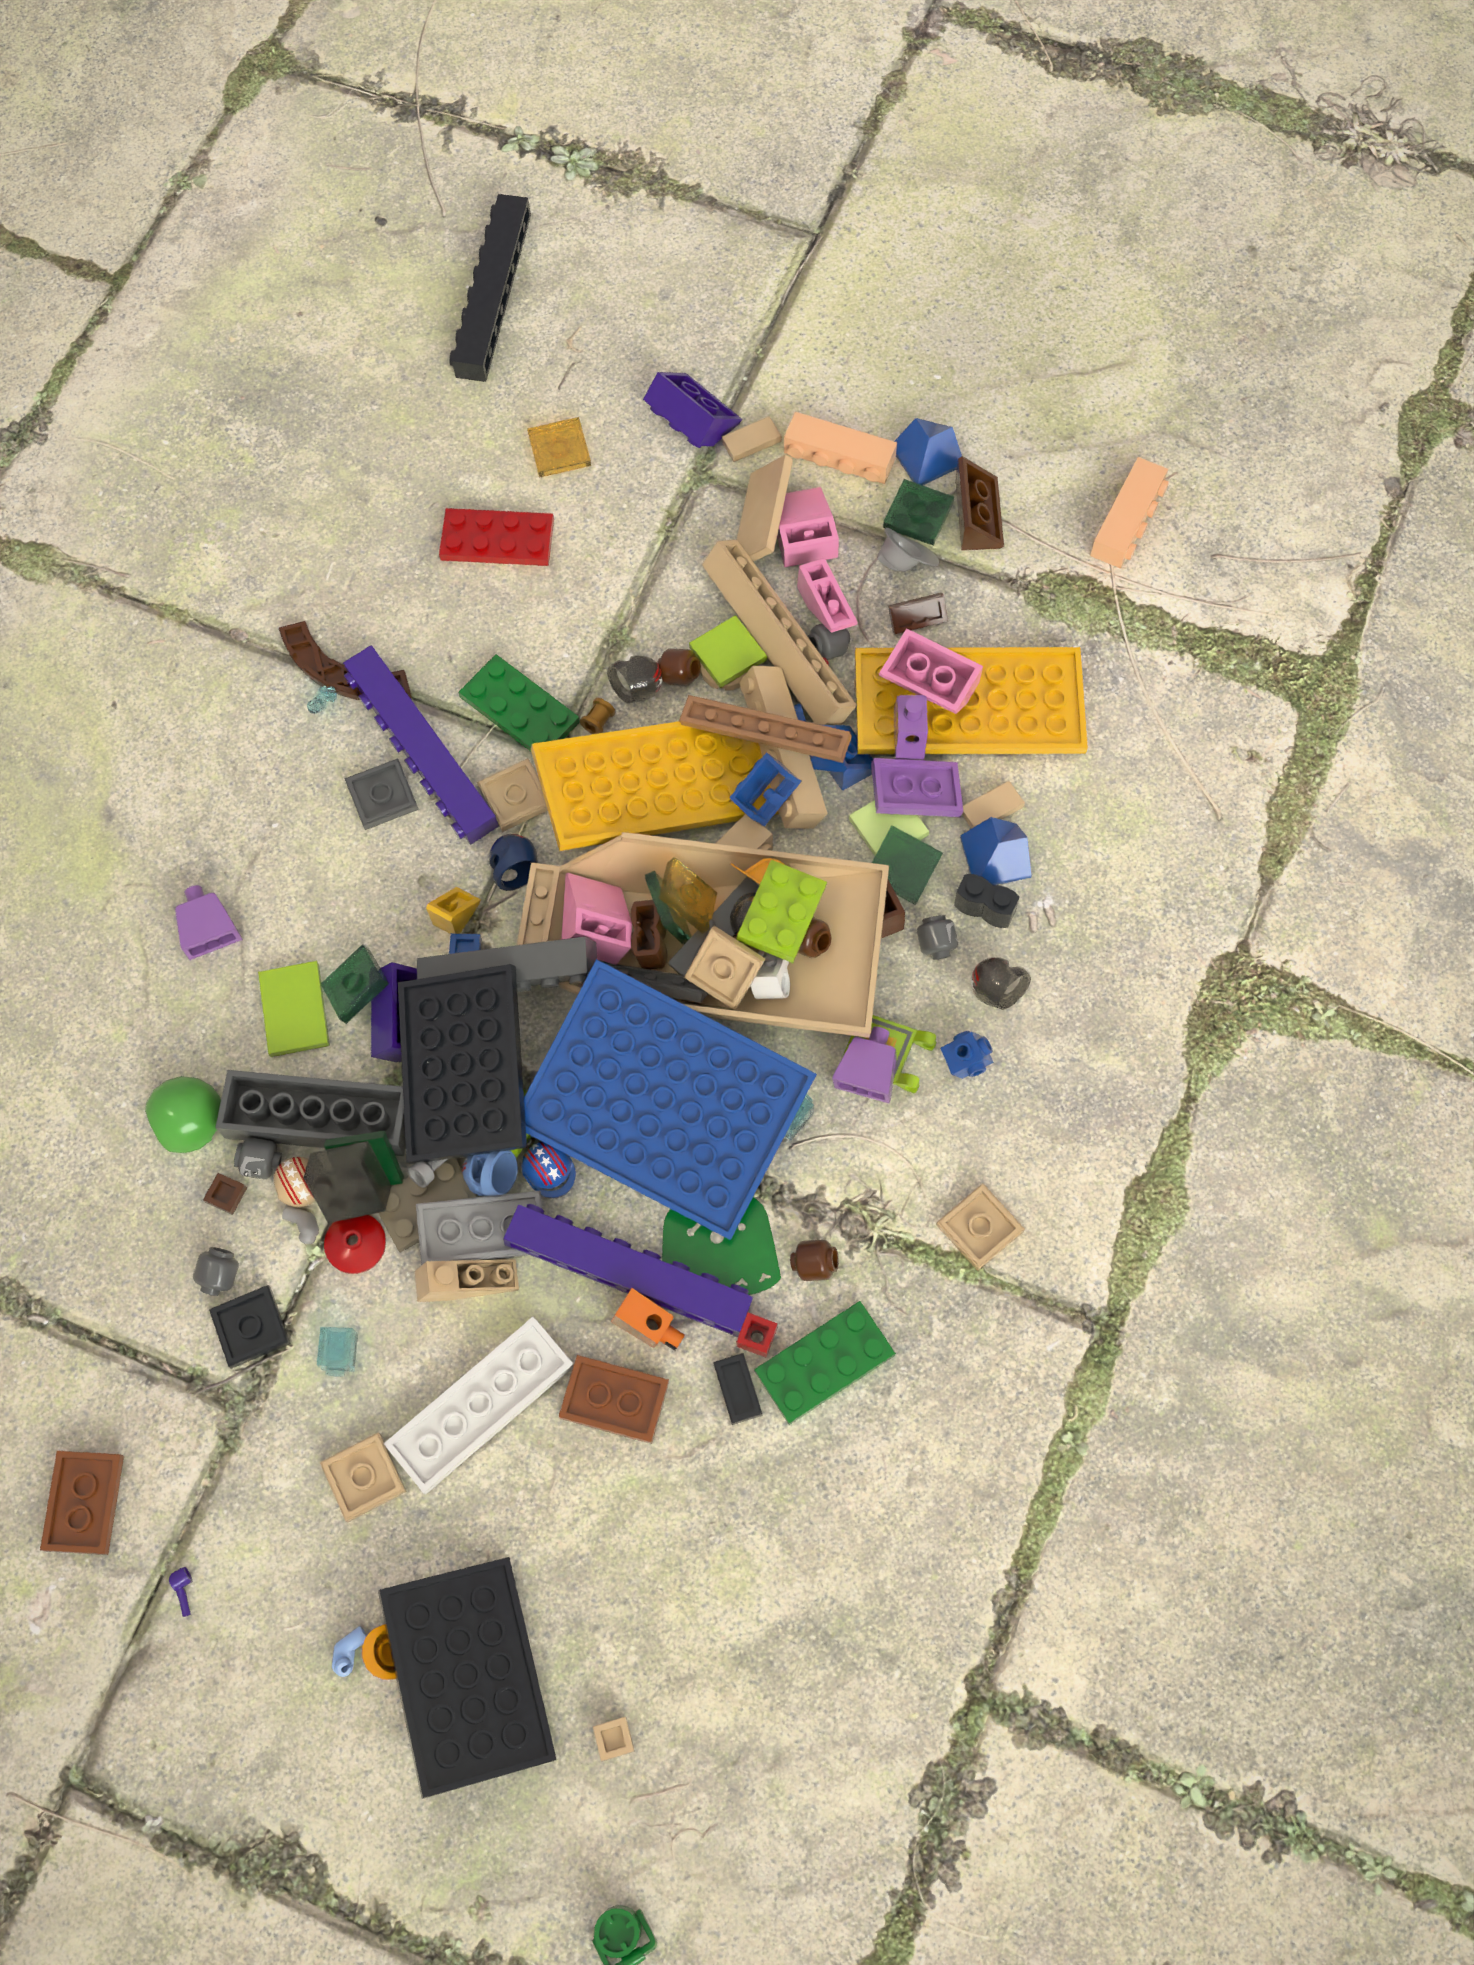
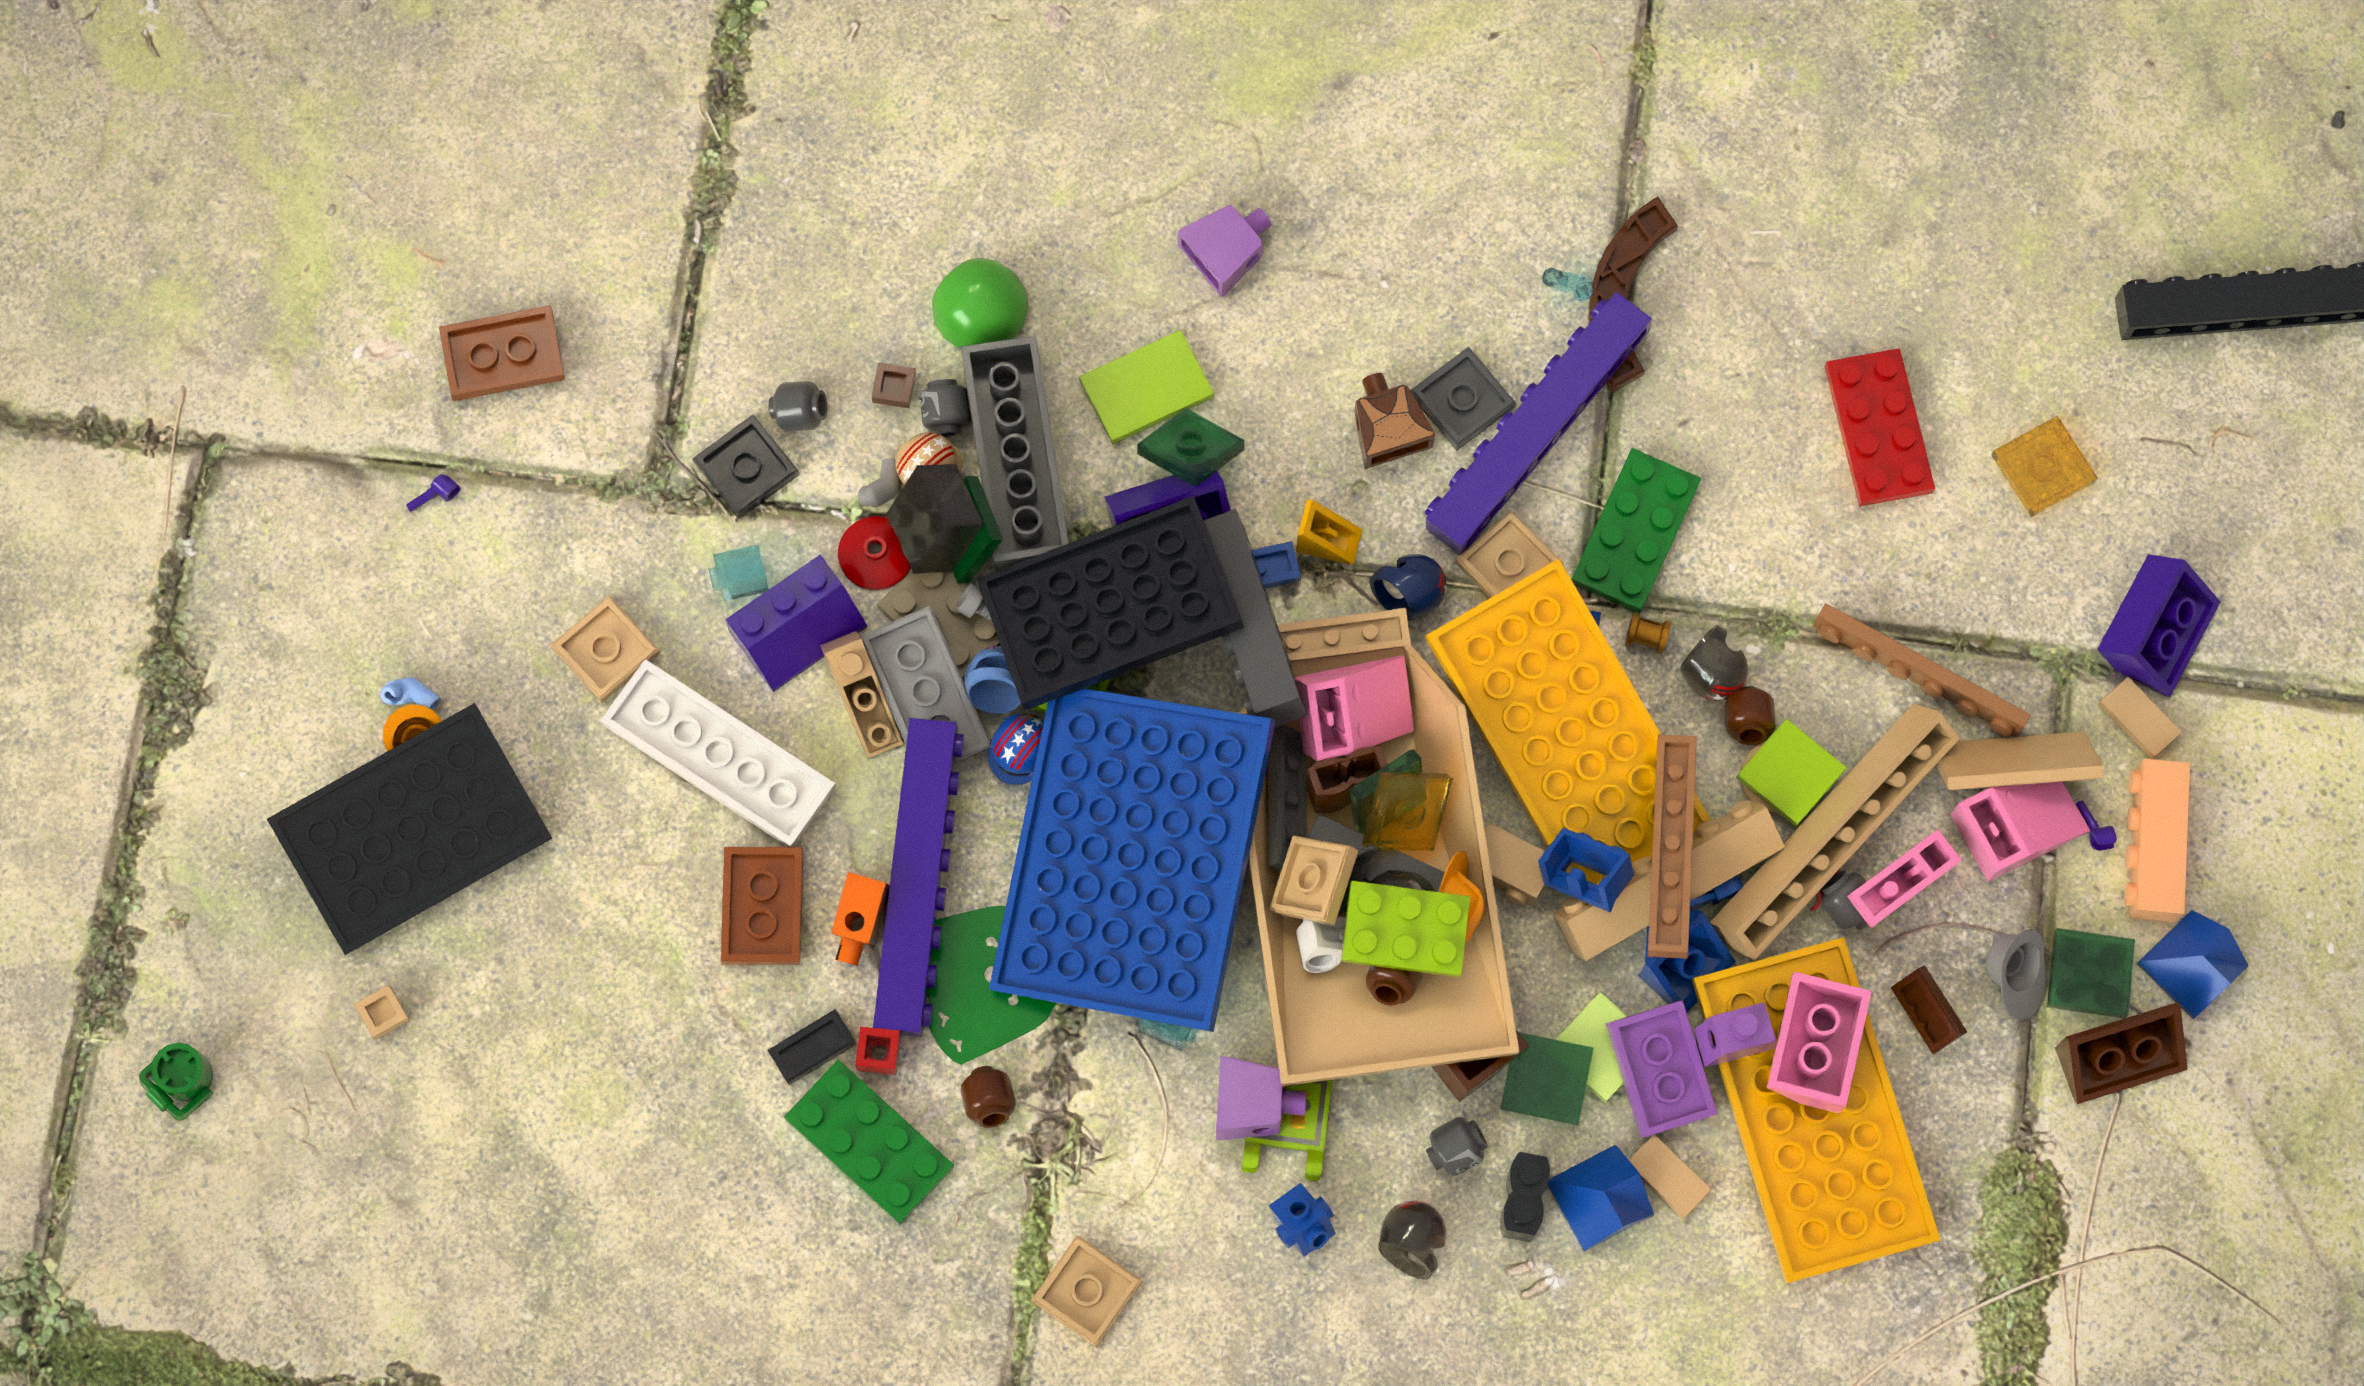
camera: 70 degrees right, 5 degrees up
(383, 844) = (1390, 423): none -> torso
(391, 1318) = (791, 621): none -> dark purple slope
(674, 559) = (1932, 677): none -> medium nougat plate
(826, 482) = (2099, 838): none -> dark purple hand
(1129, 512) = (2181, 1265): light nougat brick -> none

